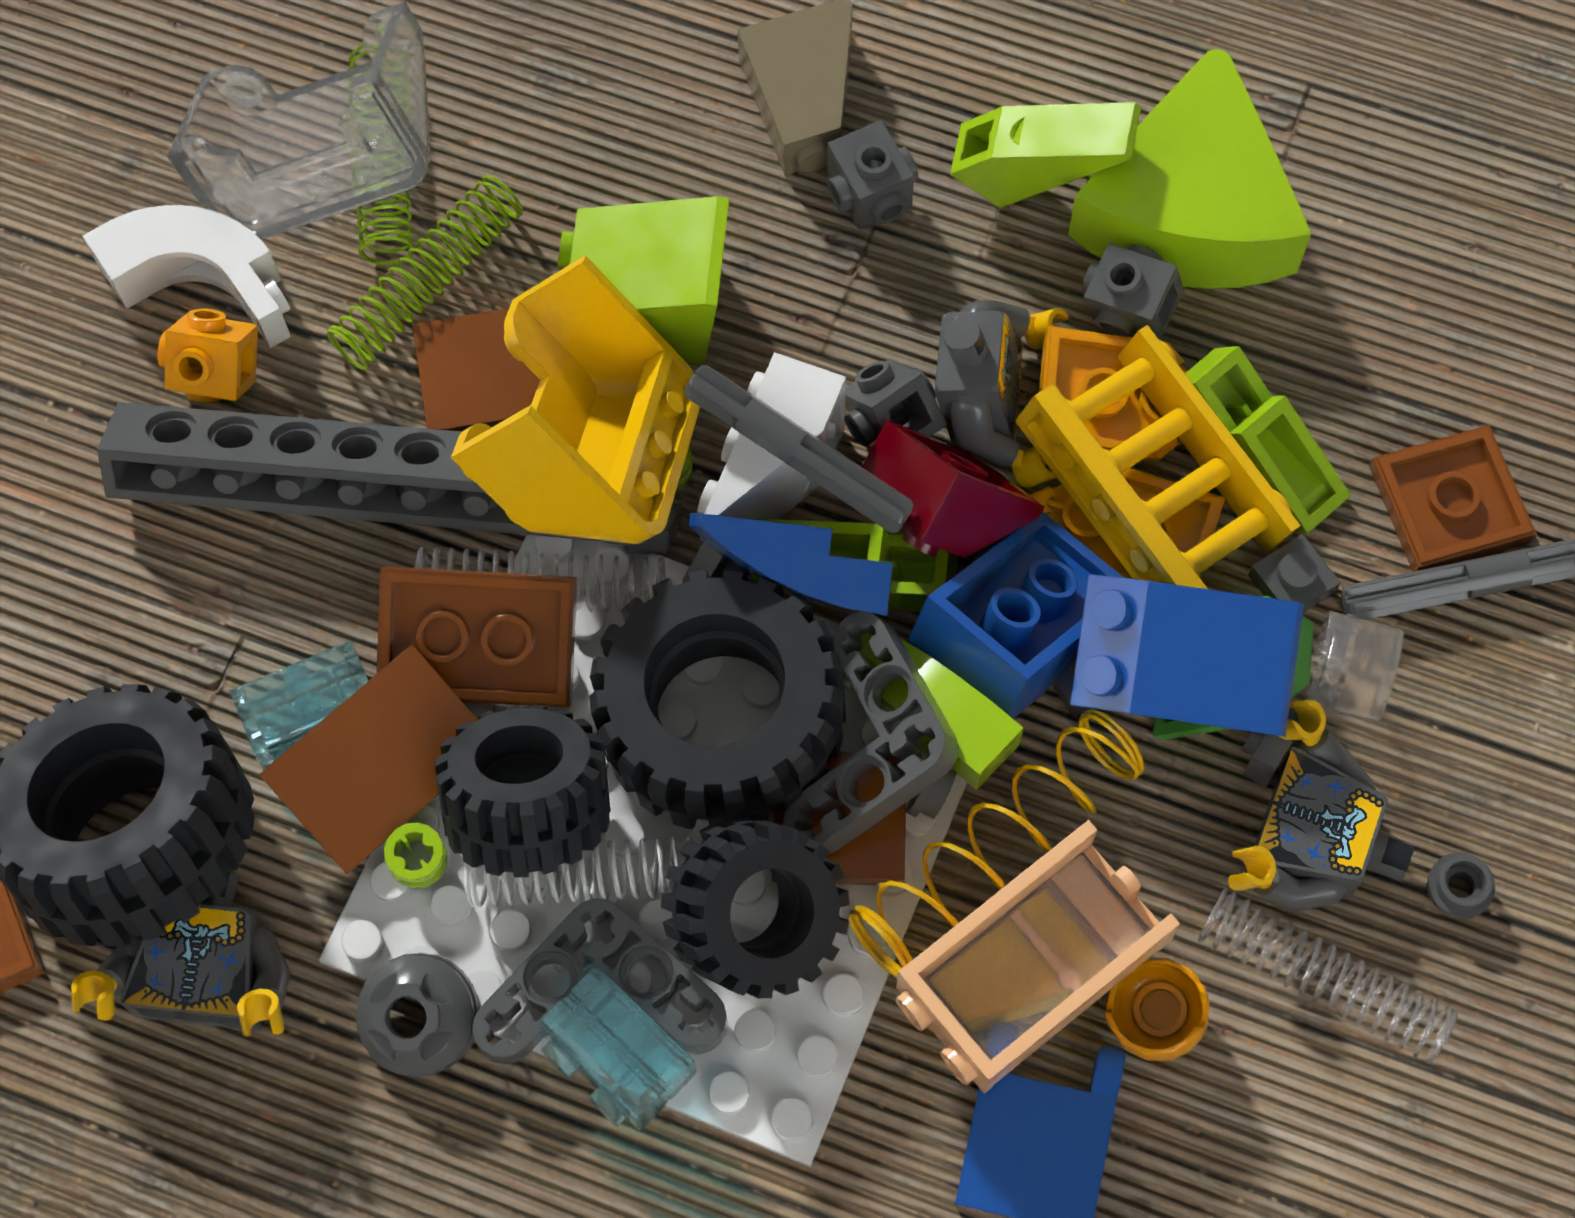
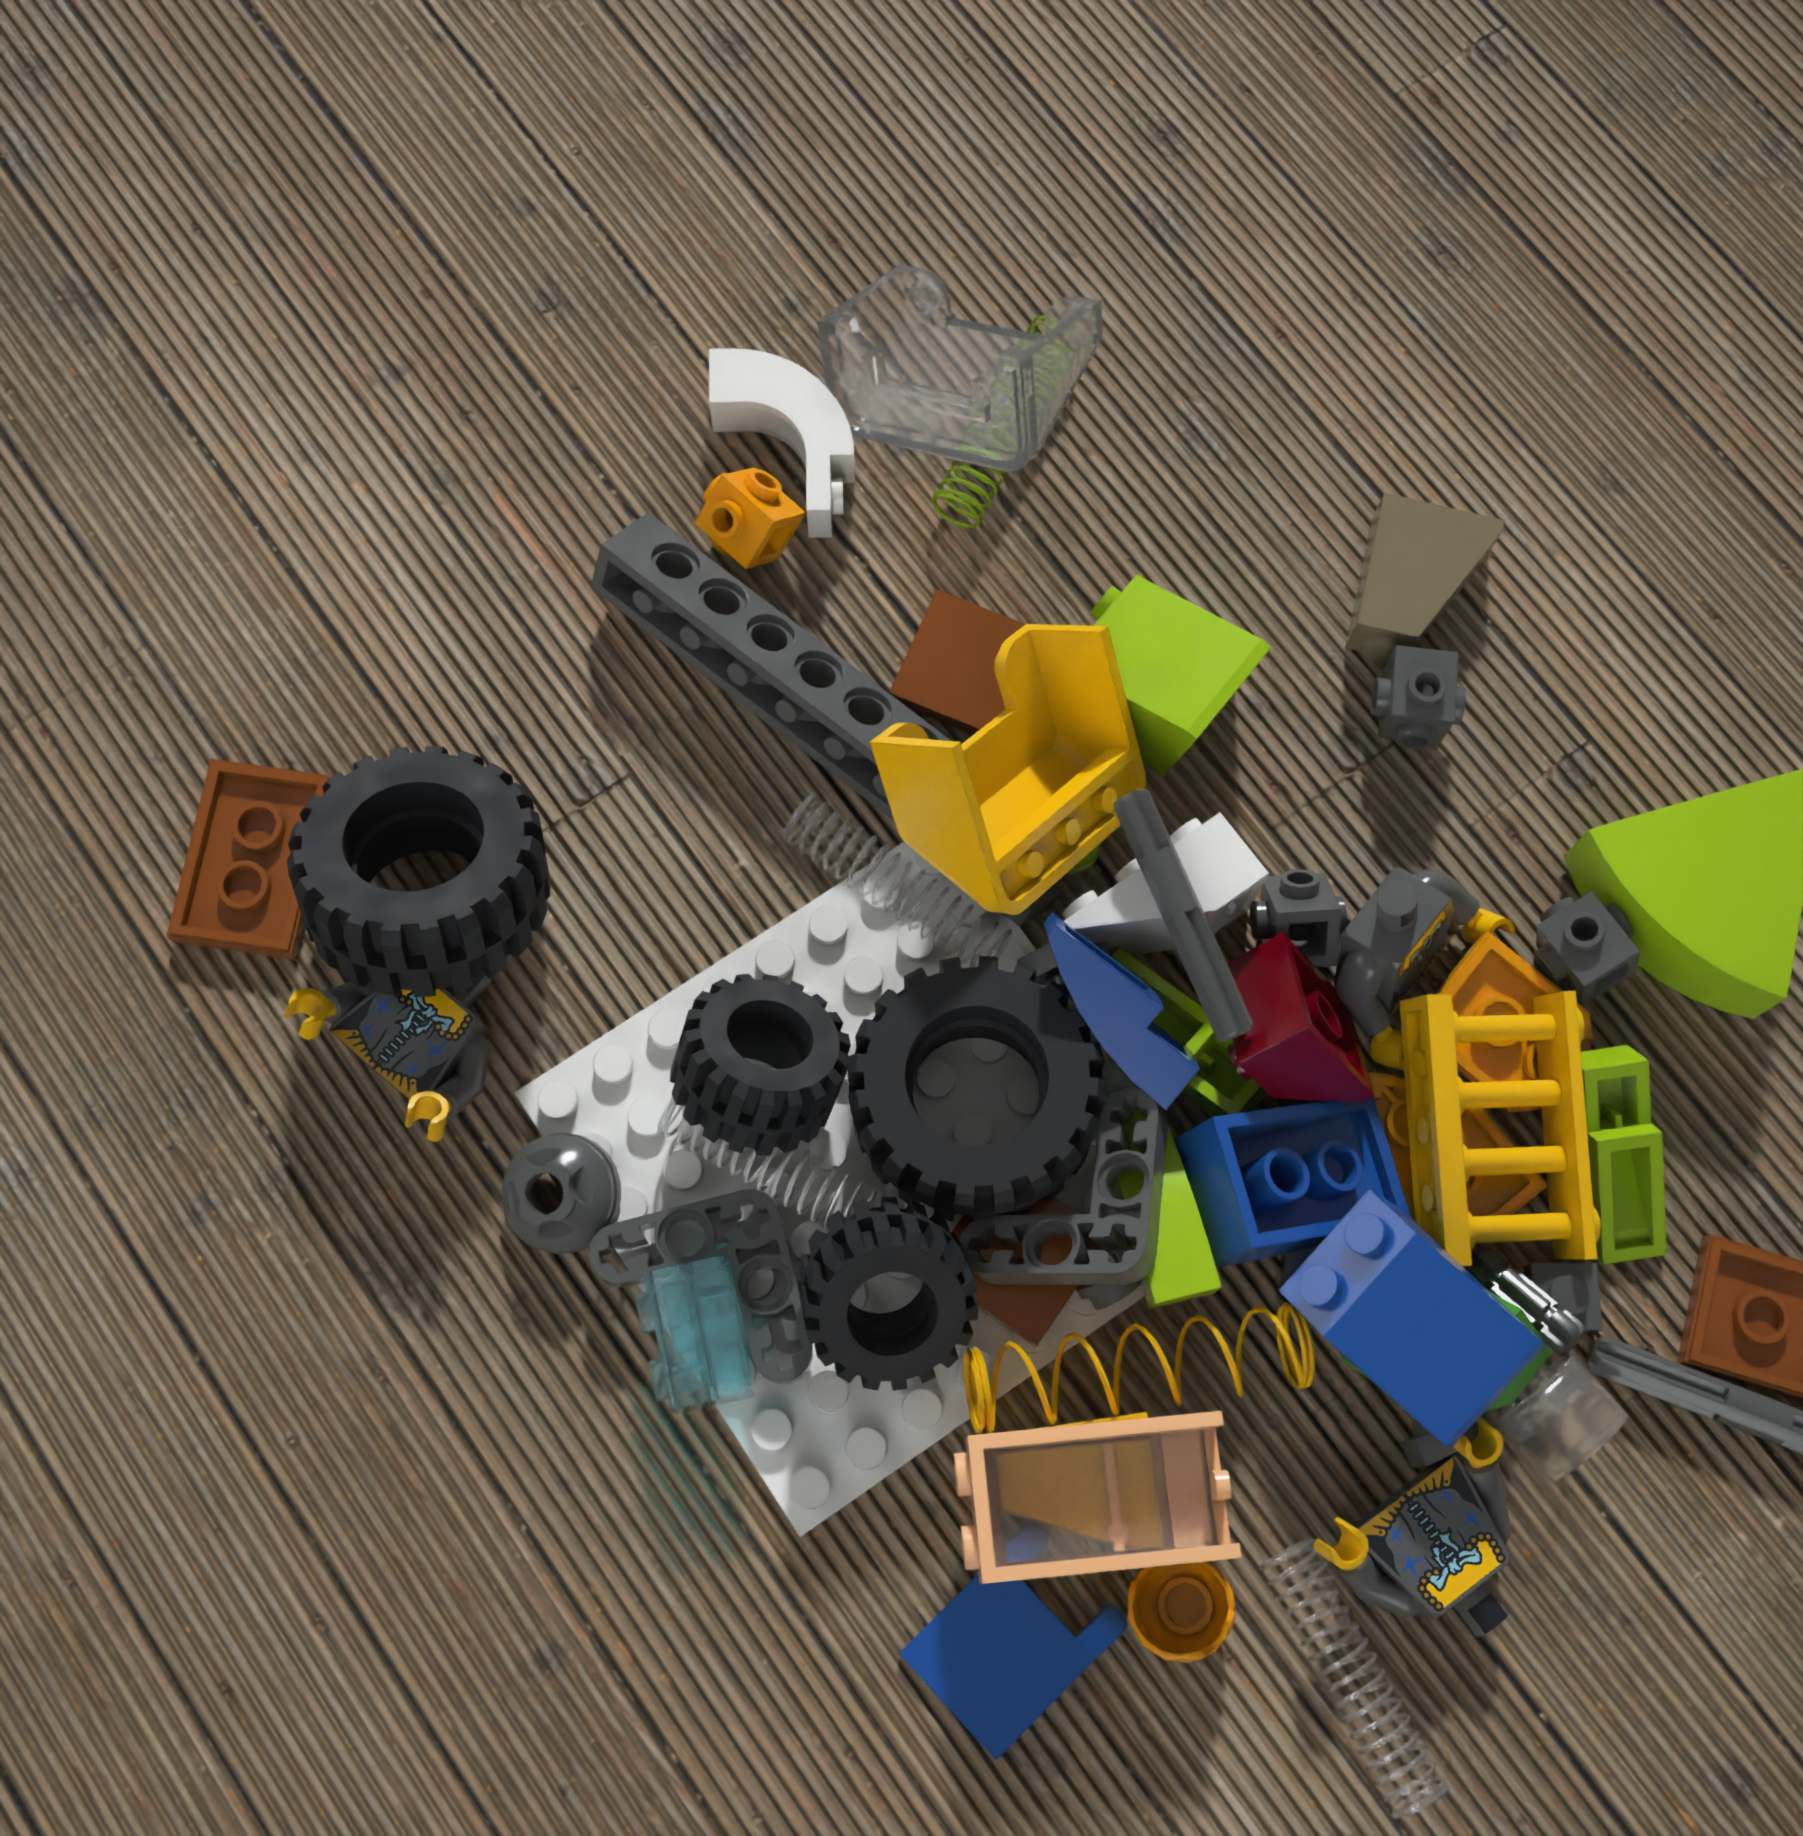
camera: 30 degrees right, 5 degrees up
(296, 698) = (638, 874): clear light blue brick -> none
(351, 339) = (1083, 527): lime piece -> none
(370, 759) = (656, 951): dark orange tile -> none
(433, 844) = (624, 1061): lime bush -> none
(484, 631) = (811, 901): dark orange tile -> none
(1041, 147) = (1586, 765): lime slope -> none
(1311, 593) = (1557, 1328): none -> dark grey axle
(1470, 870) = (1549, 1670): dark grey plate -> none

